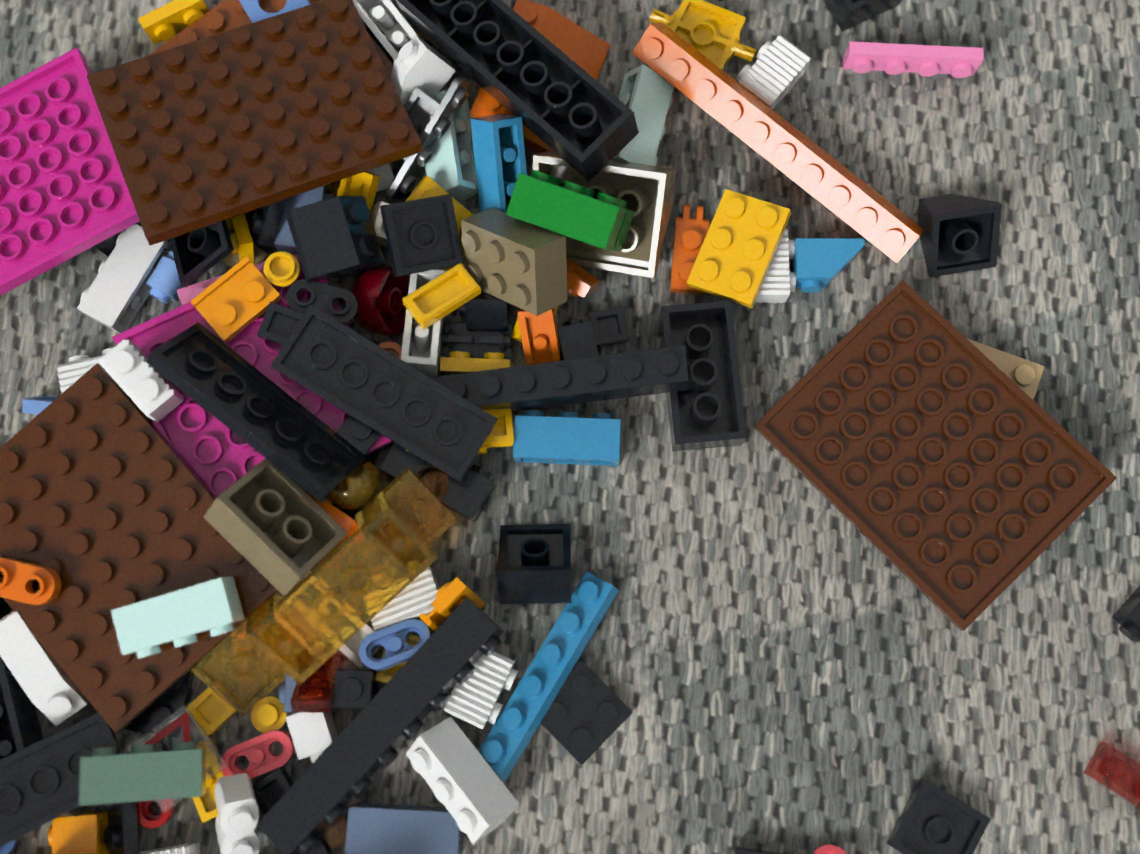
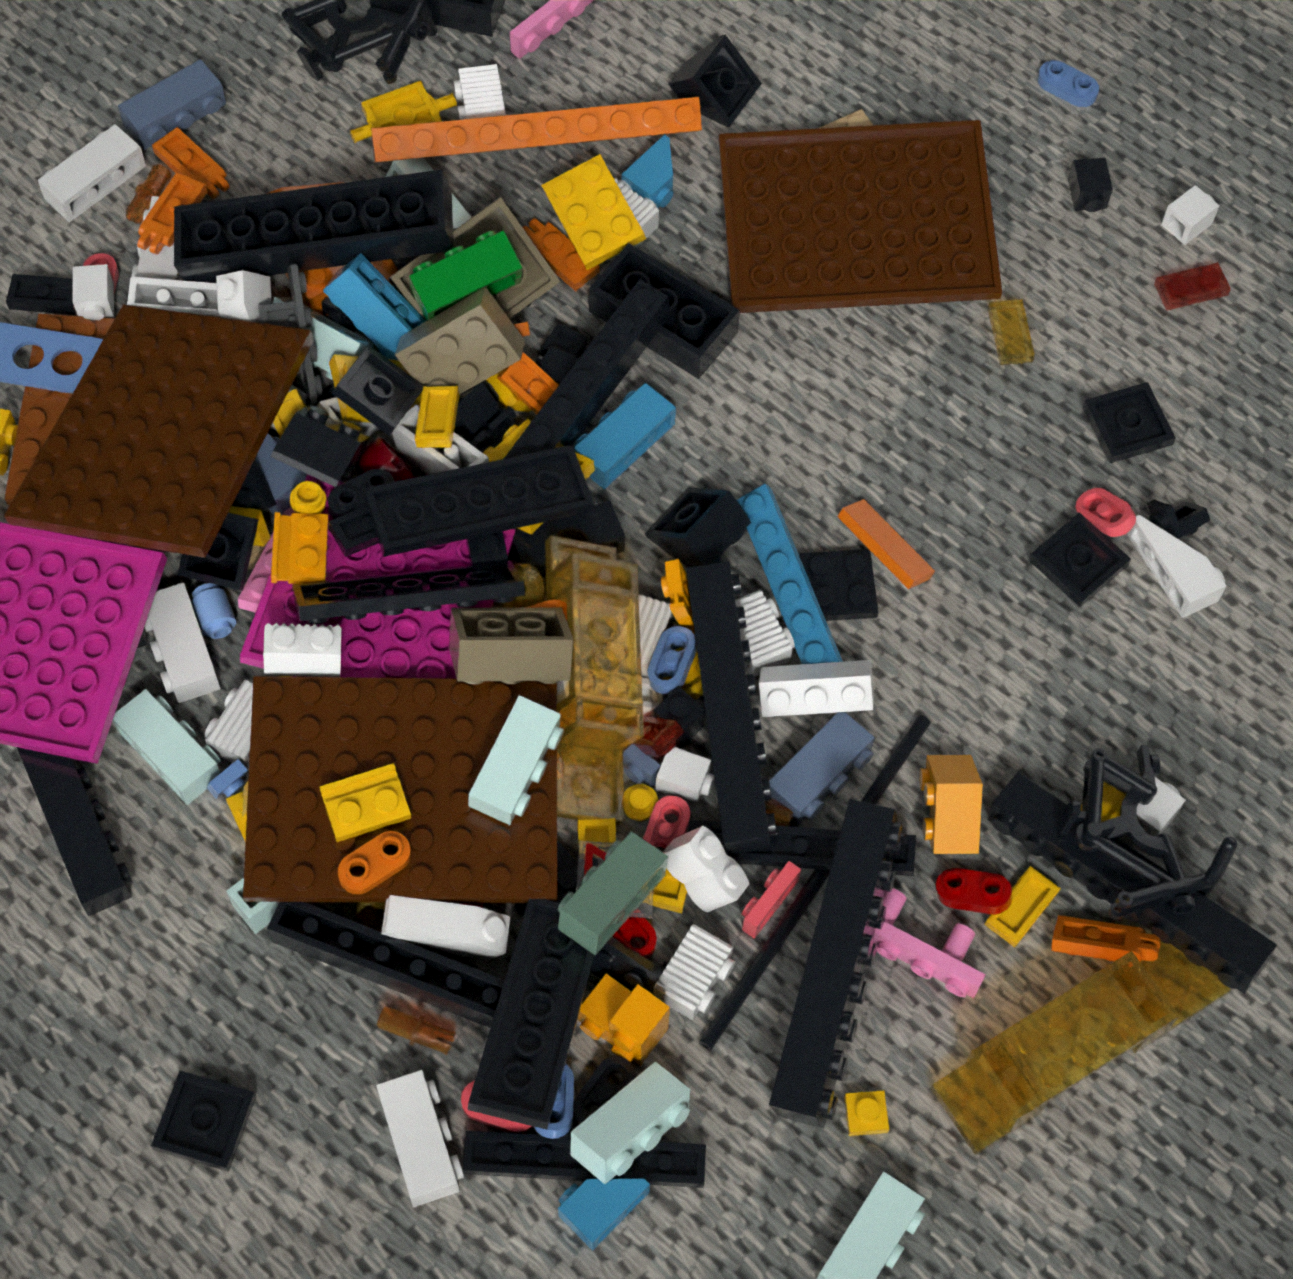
camera: 55 degrees left, 15 degrees down
(39, 341) = (167, 745): none -> light aqua brick
(60, 534) = (365, 802): none -> yellow plate
(647, 722) = (886, 544): none -> orange tile
(940, 661) = (1011, 332): none -> clear yellow tile

